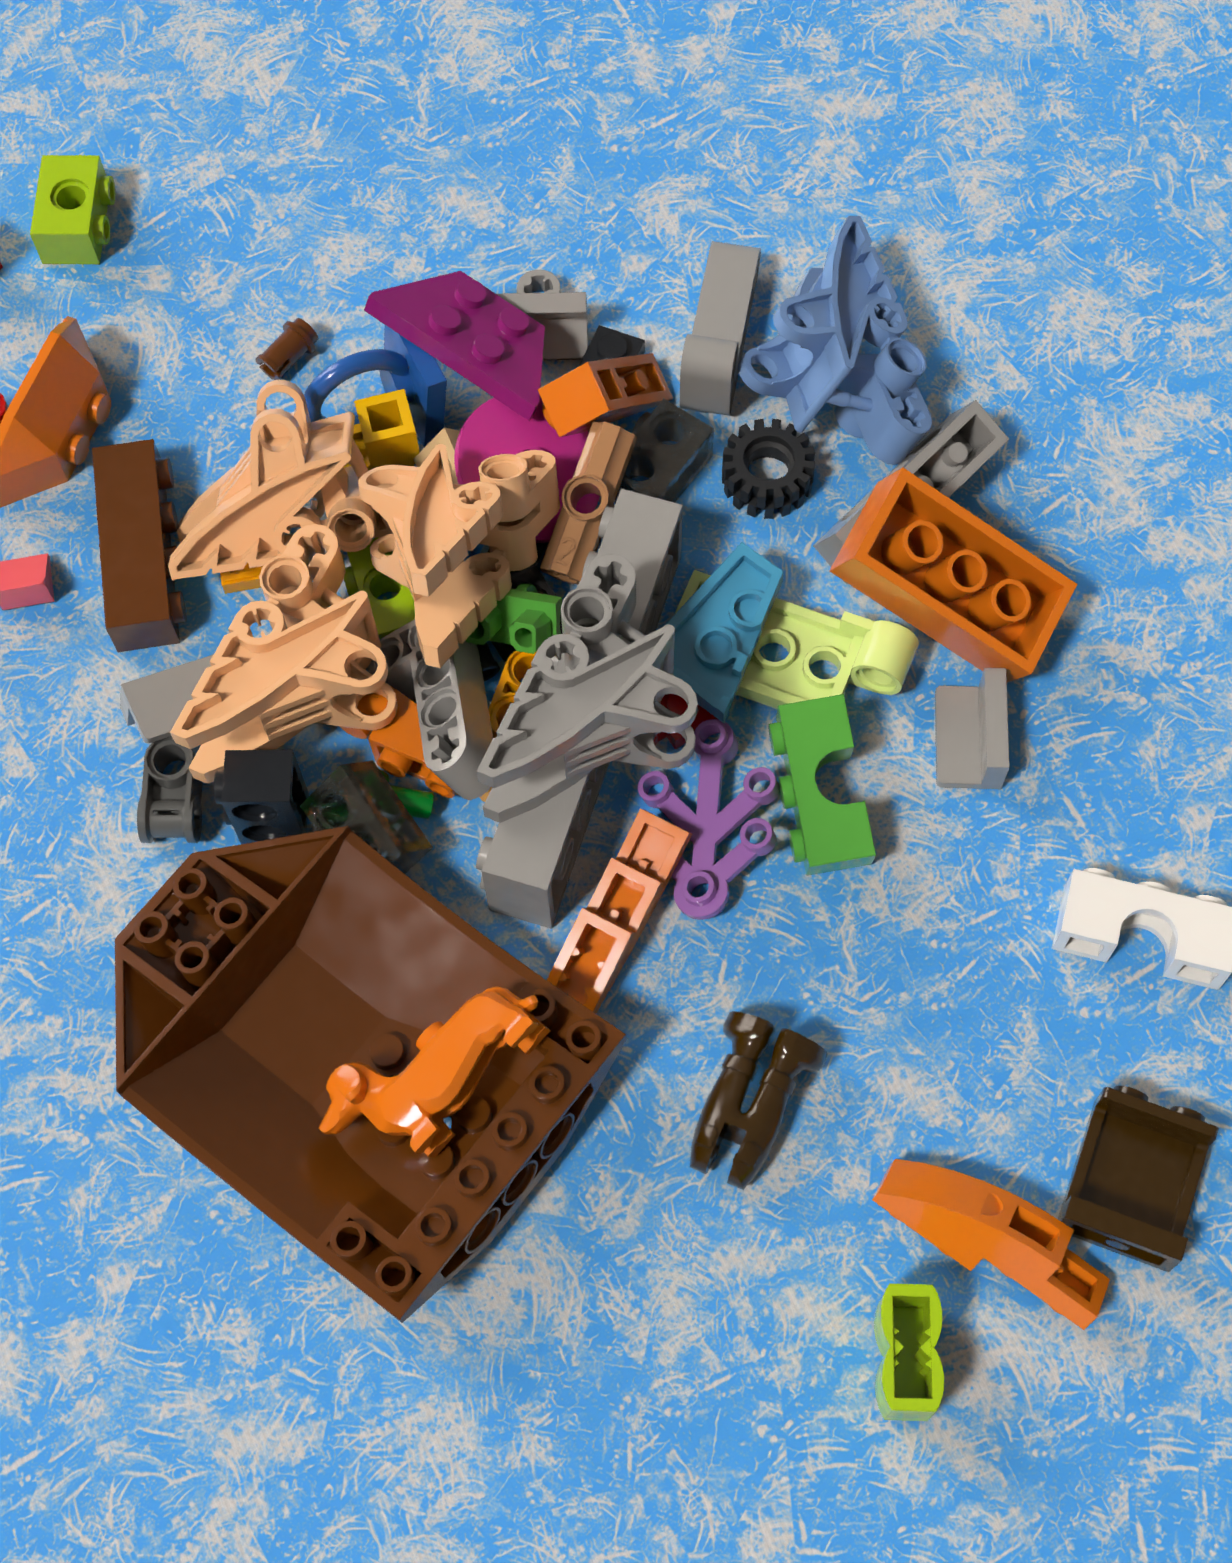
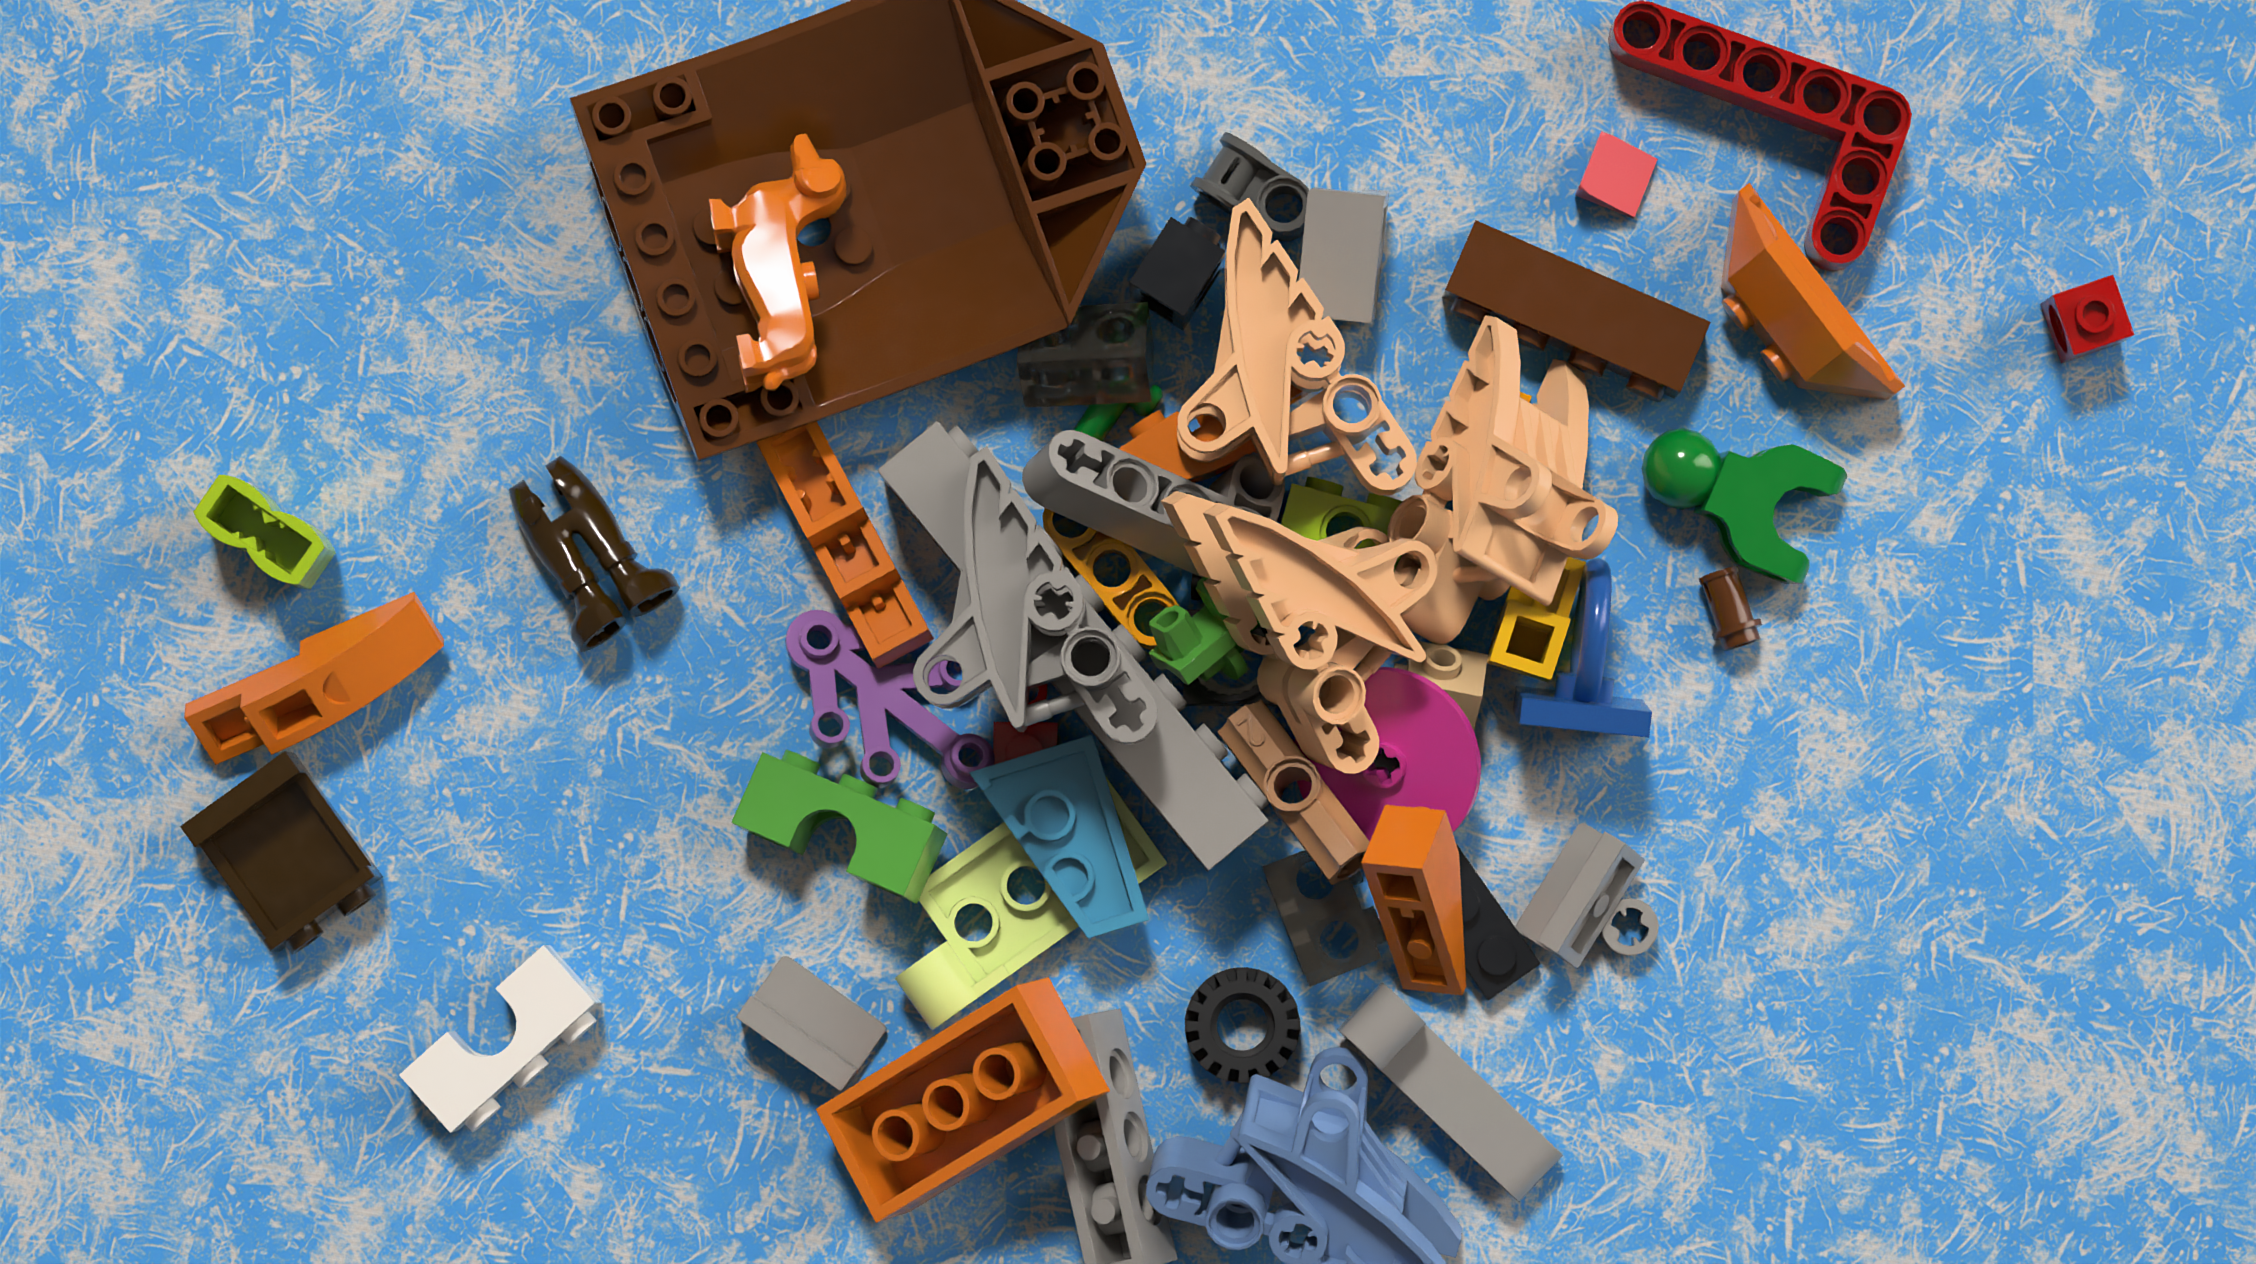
camera: 125 degrees right, 20 degrees up
(72, 209) = (2112, 478): lime brick -> none
(205, 379) = (1739, 494): none -> green piece
(469, 333) = (1566, 789): magenta wing -> none

